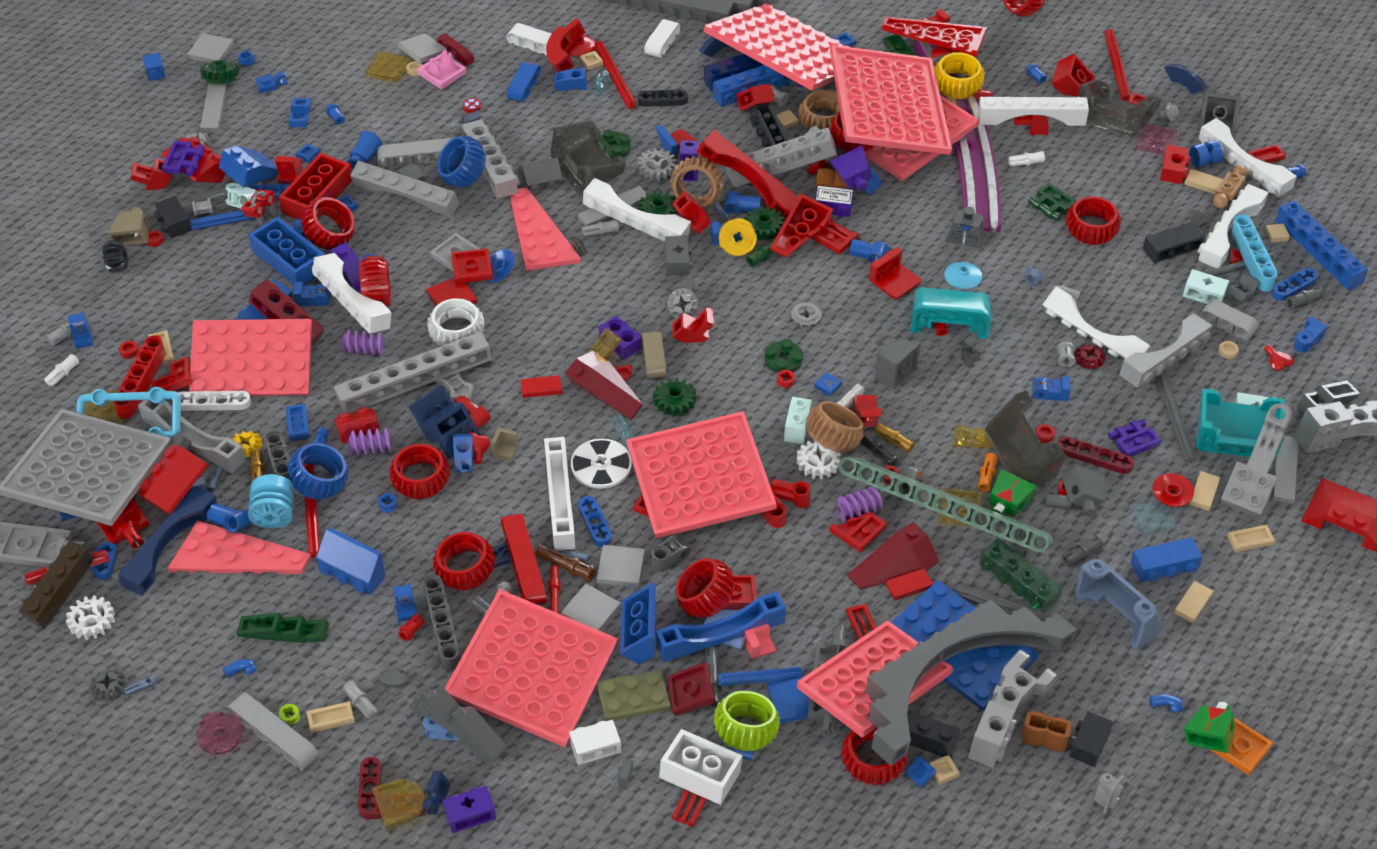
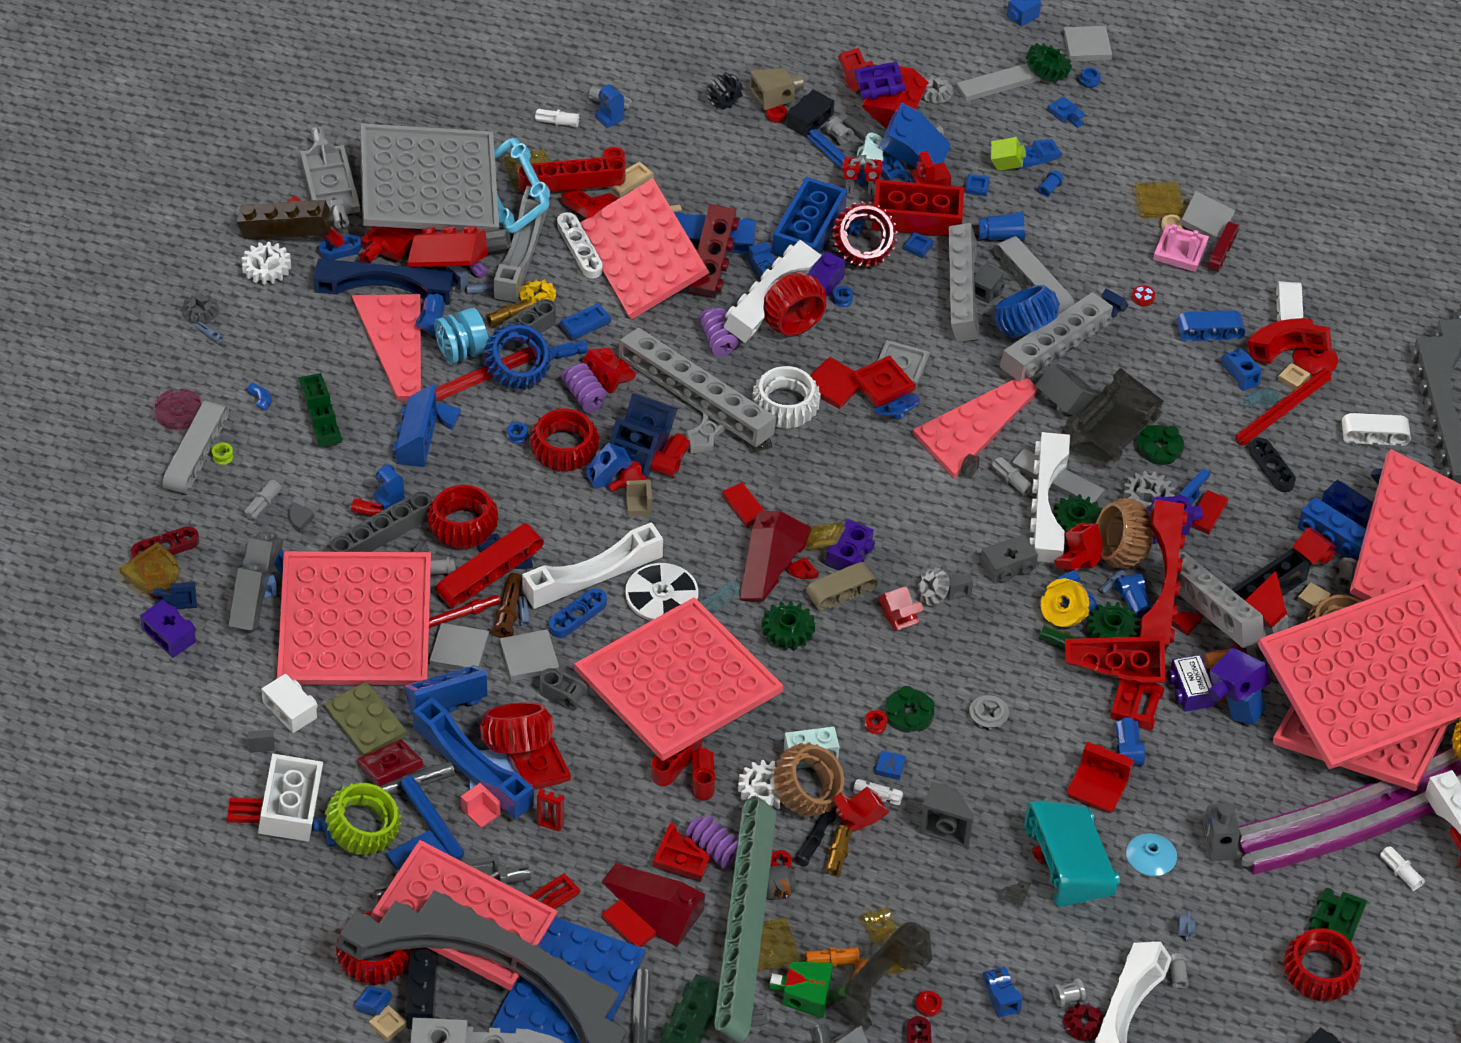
camera: 65 degrees right, 0 degrees up
(295, 122) = (1007, 153): none -> lime brick
(330, 717) = (234, 486): tan tile -> none
(791, 592) = (555, 810): none -> red tile
(802, 125) = (1269, 601): none -> red slope

